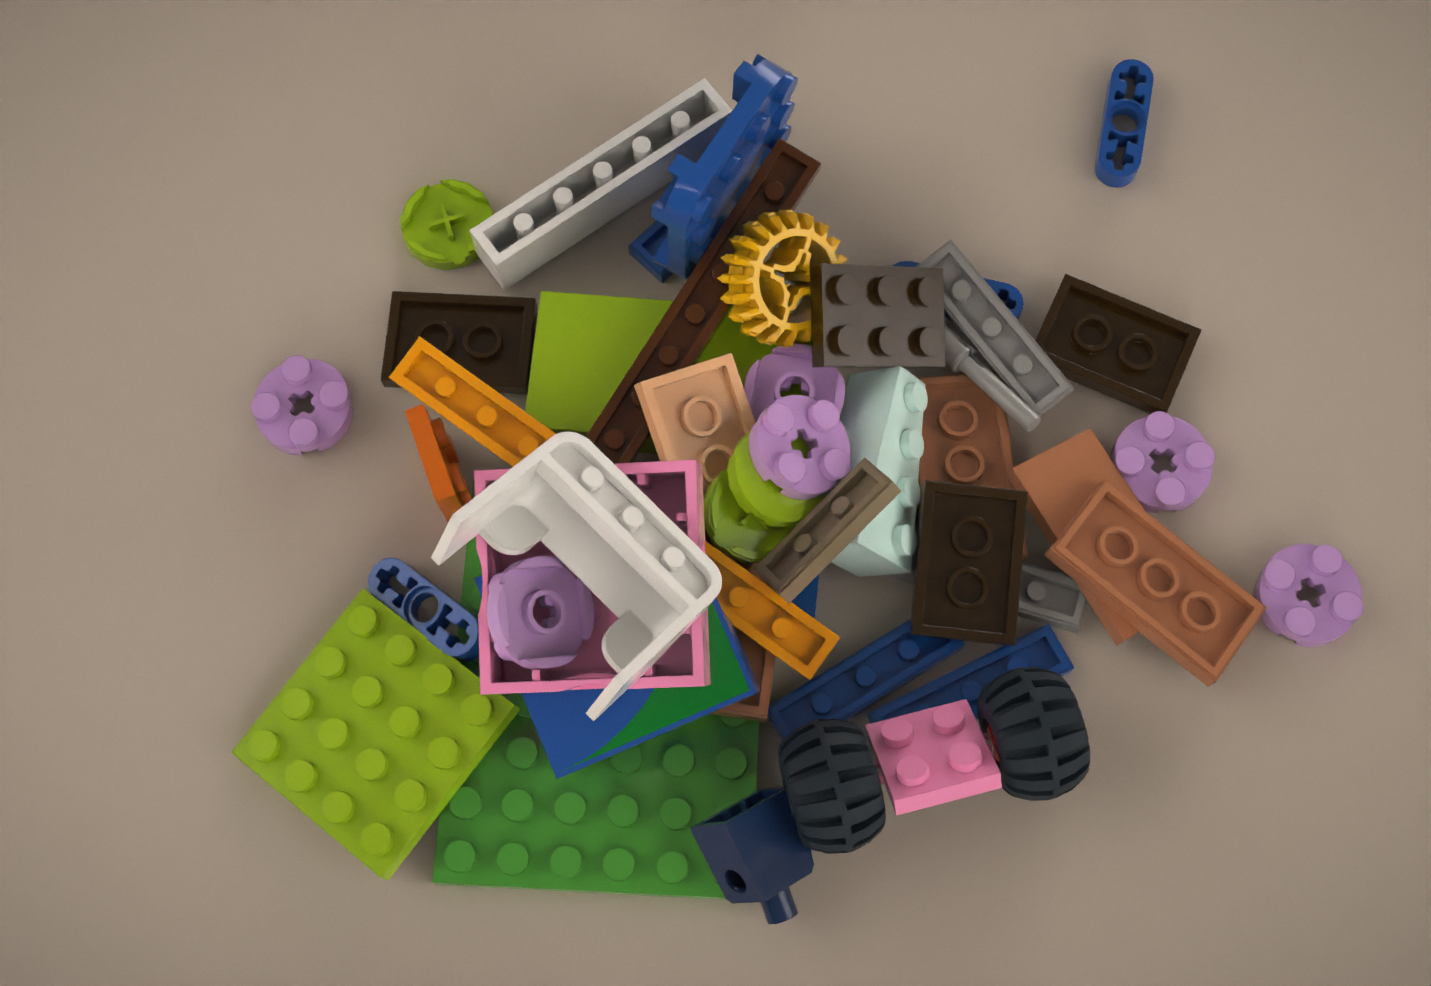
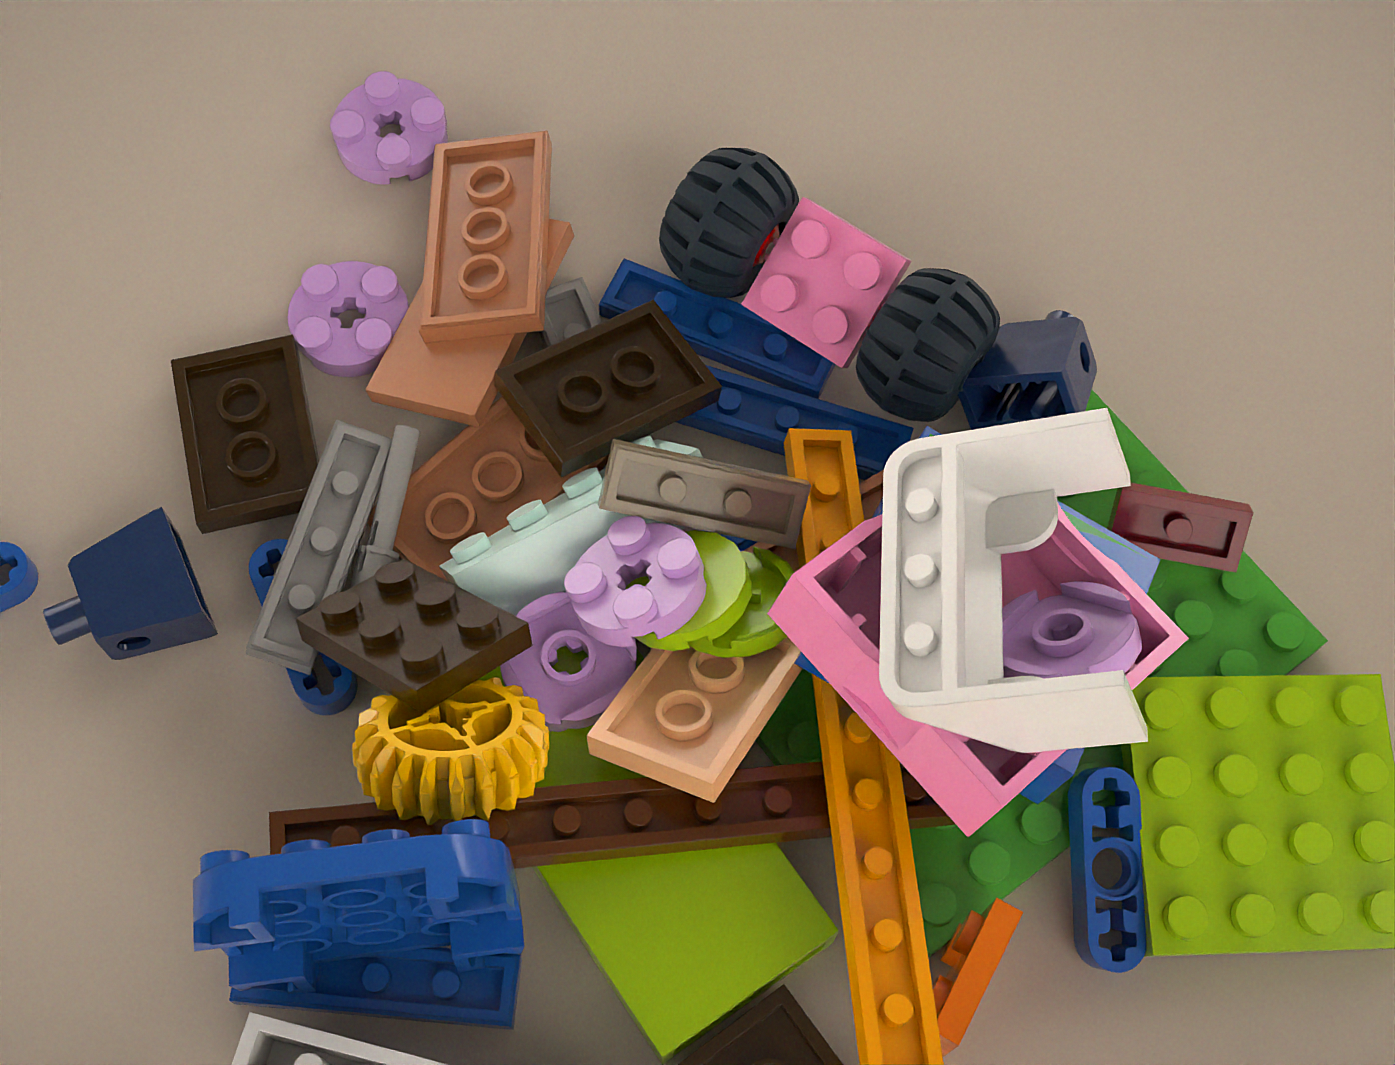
camera: 135 degrees left, 5 degrees down
(575, 836) = (1182, 525): none -> dark red plate
(1045, 219) = (134, 592): none -> dark blue torso

